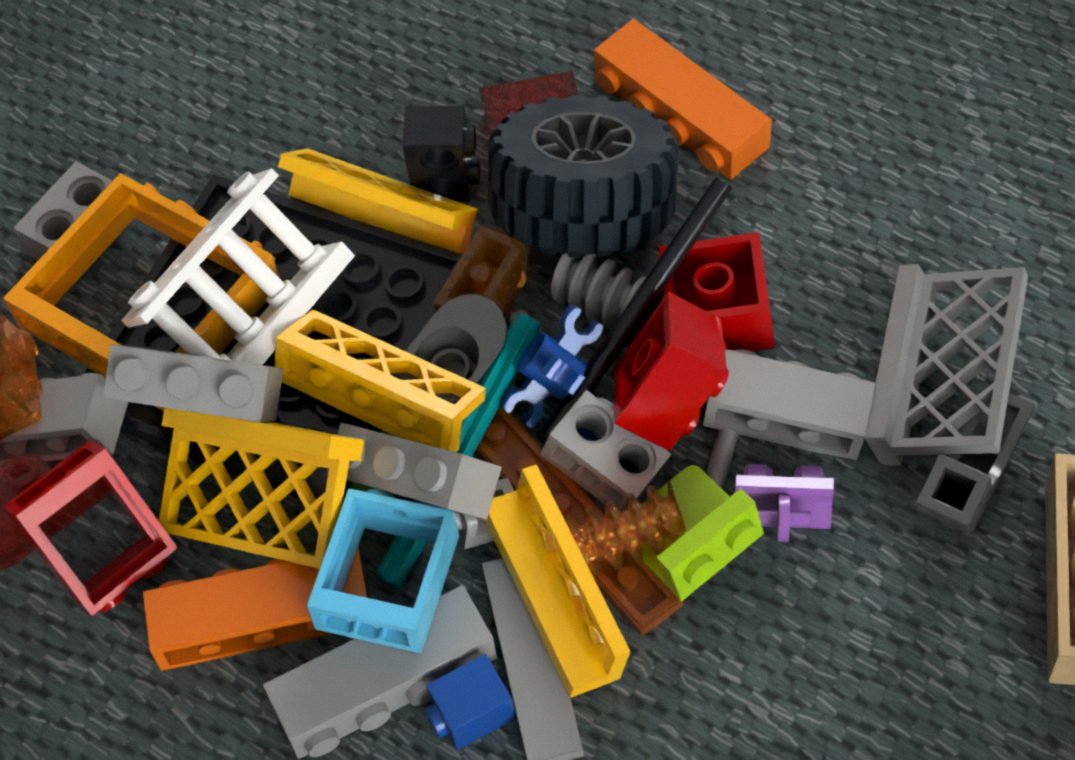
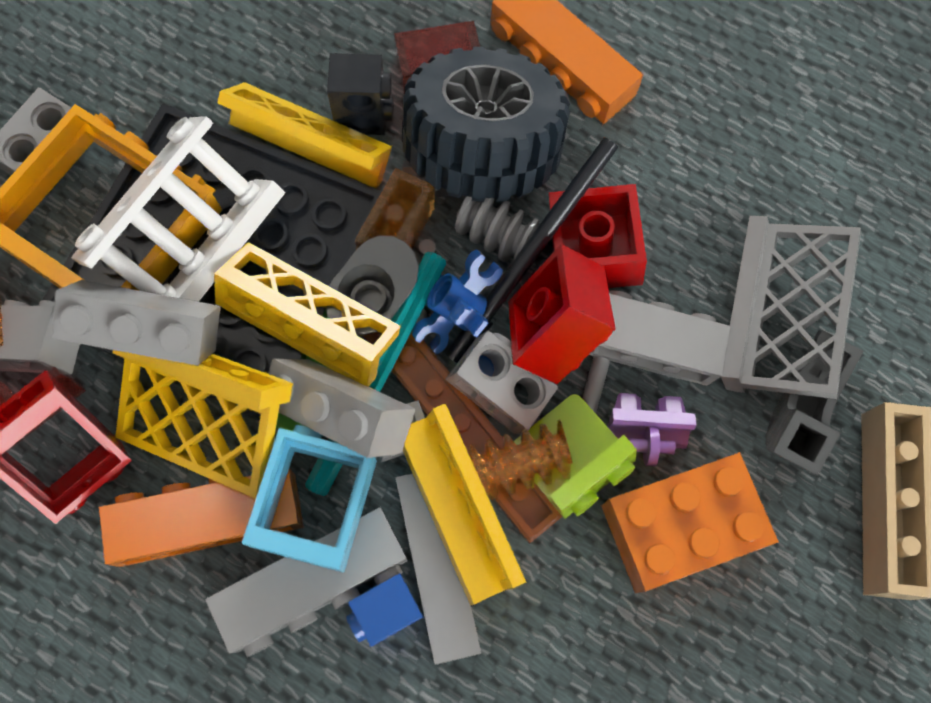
camera: 10 degrees left, 15 degrees up
(827, 600) = (688, 523): none -> orange brick

